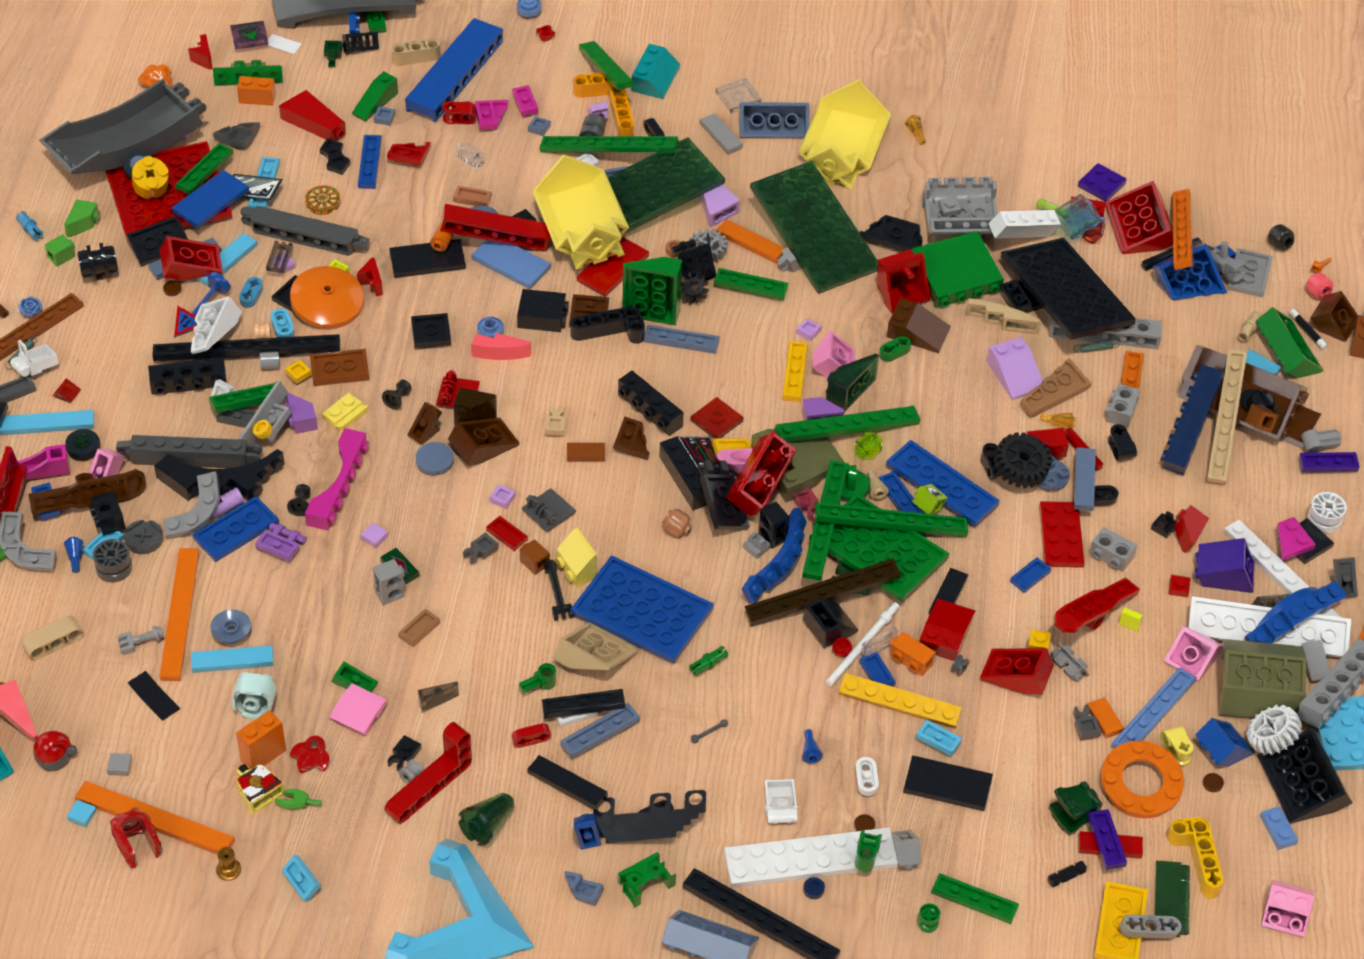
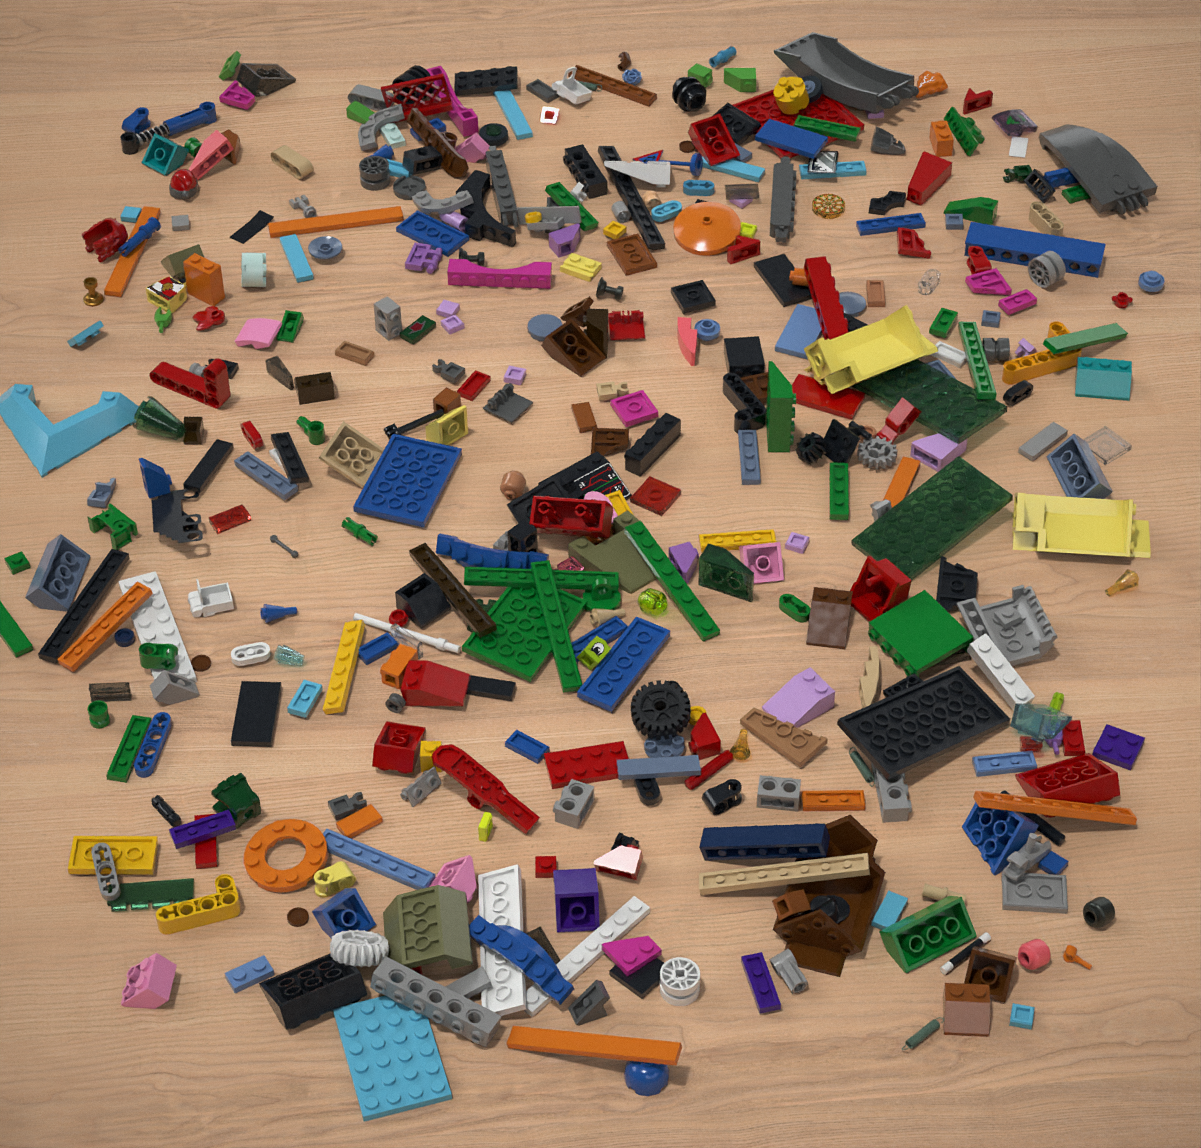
camera: 80 degrees right, 5 degrees down
(40, 537) = (392, 135): none -> light aqua plate
(139, 796) = (144, 232): none -> blue pin
(201, 765) = (174, 262): none -> olive slope
(400, 535) = (452, 324): none -> lavender tile
(467, 667) = (314, 388): none -> dark brown slope
(493, 66) = (1046, 269): none -> light grey wheel
(510, 785) = (194, 430): none -> dark brown panel
(537, 158) = (943, 322): none -> green plate
(588, 409) = (634, 408): none -> dark pink plate
(655, 773) = (229, 519): none -> clear red plate
(679, 217) = (899, 420): none -> piece
(806, 897) = (105, 626): none -> orange plate
(876, 745) = (288, 656): none -> clear light blue cone
(898, 903) = (110, 692): none -> clear smoke tile
(976, 873) = (151, 744): none -> blue beam
(1108, 256) = (1004, 763): none -> medium blue tile

